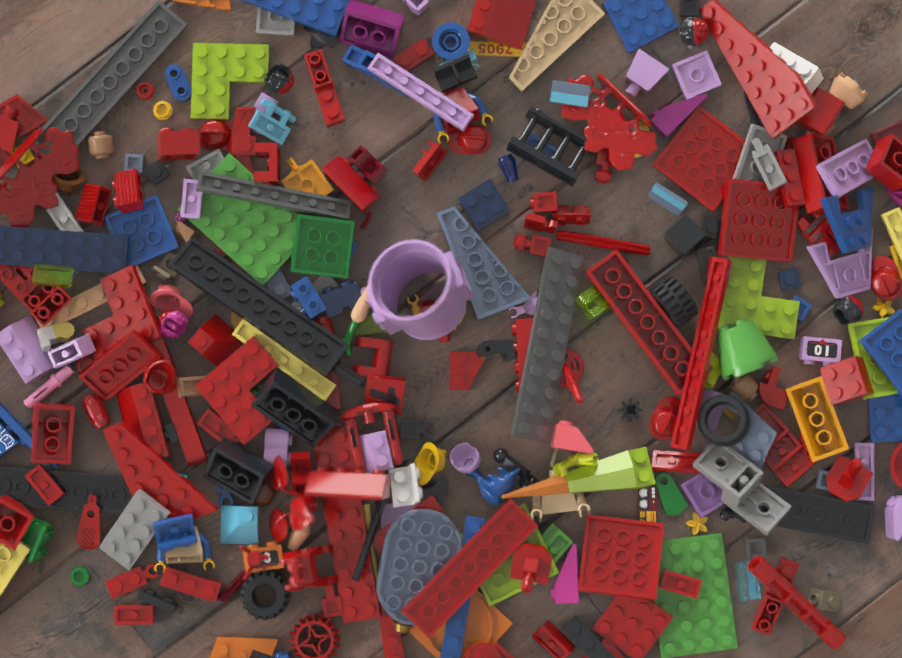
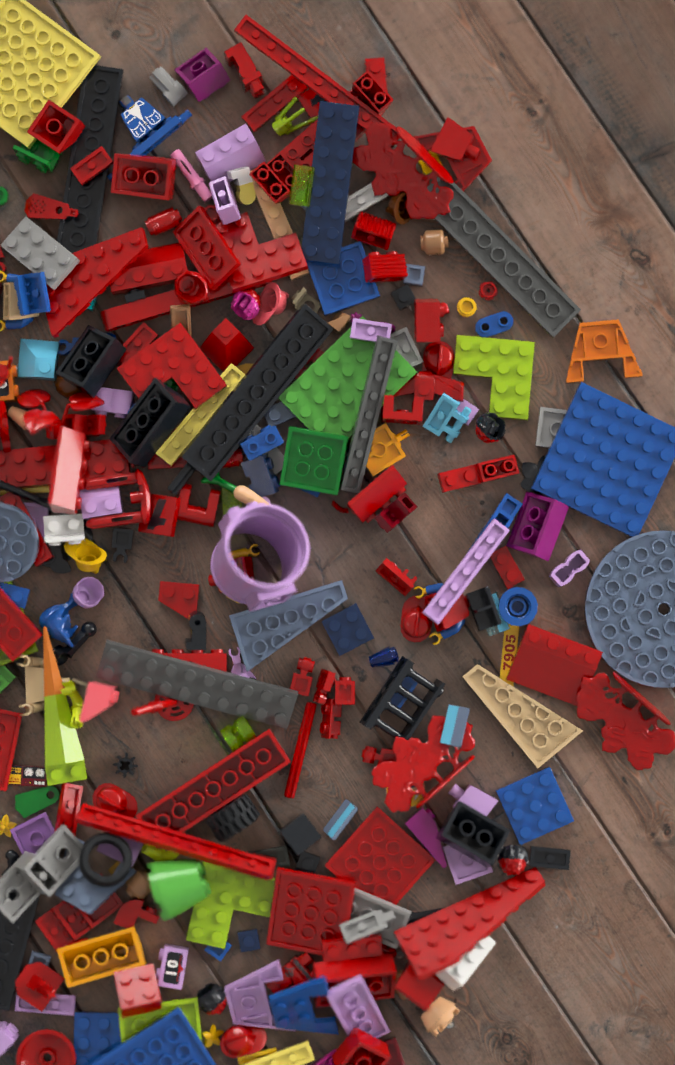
camera: 85 degrees right, 0 degrees up
(673, 68) = (473, 834): none -> black slope

